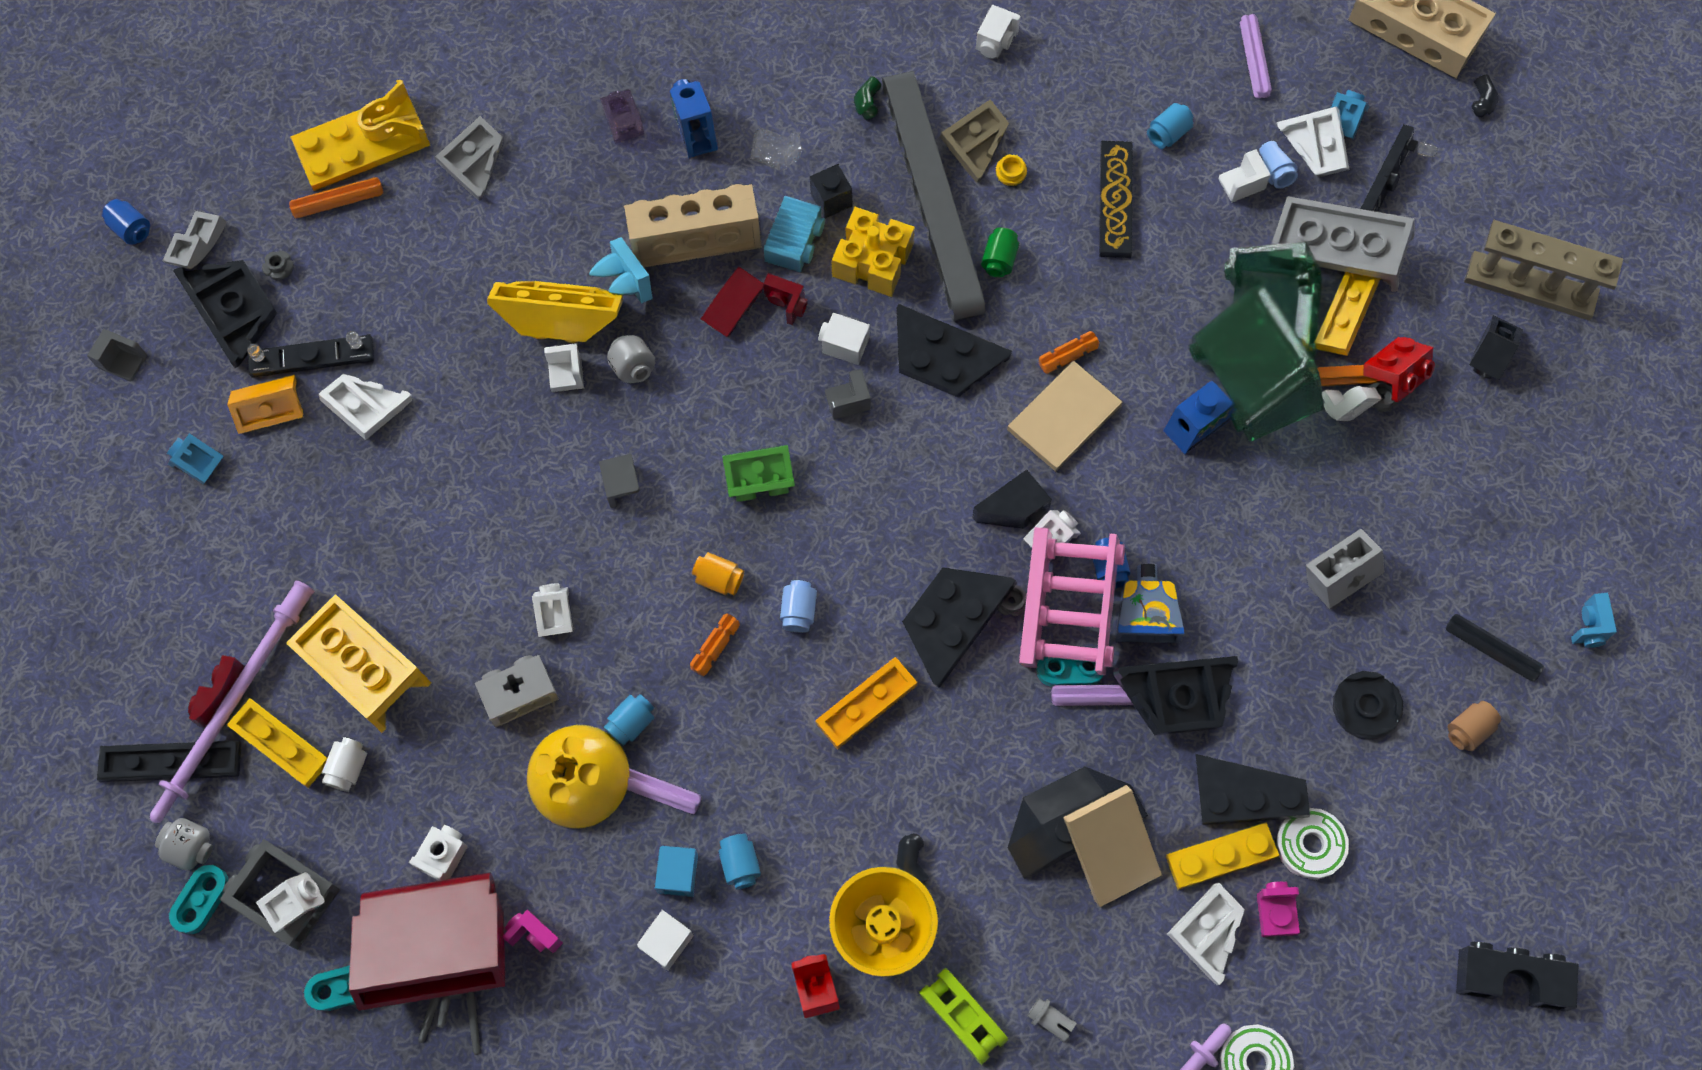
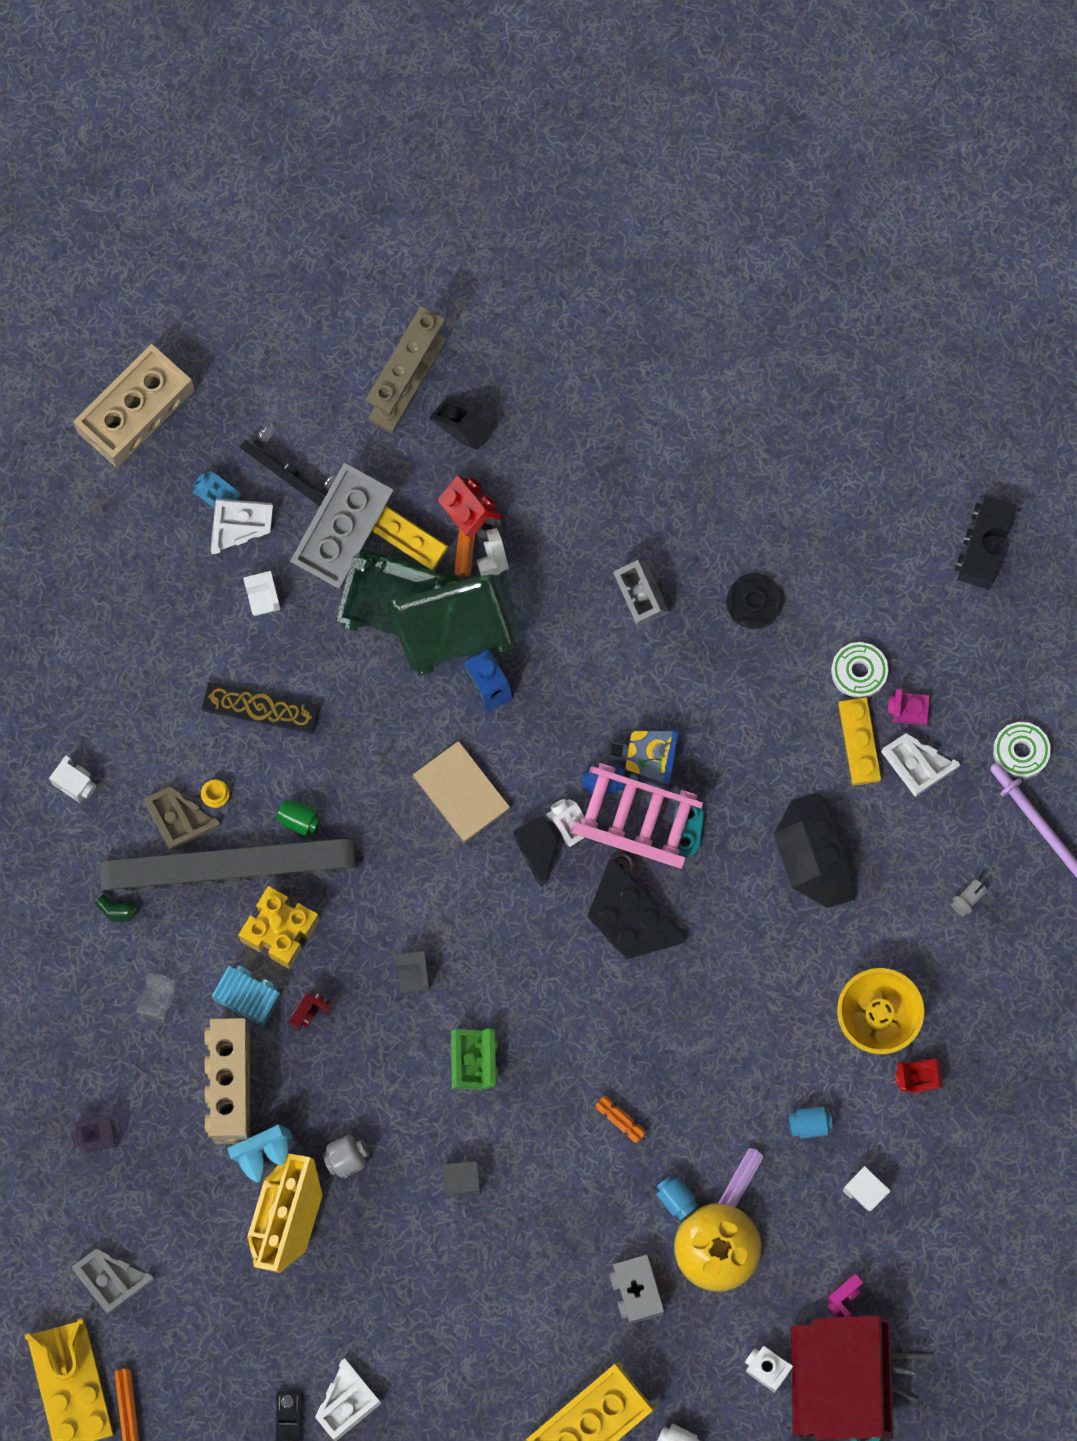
camera: 80 degrees left, 5 degrees up
(552, 610) = (569, 1252): white bracket -> none
(564, 367) = (345, 1216): white panel -> none
(676, 871) = (812, 1173): dark azure panel -> none
(691, 104) = (110, 1068): blue torso -> none
(718, 574) = (560, 1106): light orange brick -> none
(732, 301) = (304, 1058): dark red slope -> none
(798, 606) = (599, 1043): light blue brick -> none
(831, 191) = (211, 955): black brick -> none
(844, 338) = (358, 966): white brick -> none
(866, 703) = (692, 1000): light orange plate -> none
(908, 855) = (825, 987): black arm -> none
(942, 353) = (384, 885): black wing -> none
(963, 1016) = (956, 965): lime plate -> none
(1068, 352) = (402, 777): orange axle -> none
(1089, 695) = (714, 808): lavender axle -> none
(1113, 845) = (845, 822): tan tile -> none
(1170, 125) = (199, 645): dark azure brick -> none
(1179, 694) = (725, 745): black wing -> none
(1247, 794) = (814, 711): black wing -> none
(1255, 56) = (141, 557): lavender axle -> none
(1280, 166) = (254, 562): light blue cone -> none
(1474, 726) = (785, 524): medium nougat brick -> none
(1488, 96) = (221, 368): black arm -> none
(1494, 647) = (722, 492): black axle -> none
(1599, 617) = (711, 405): dark azure bracket -> none

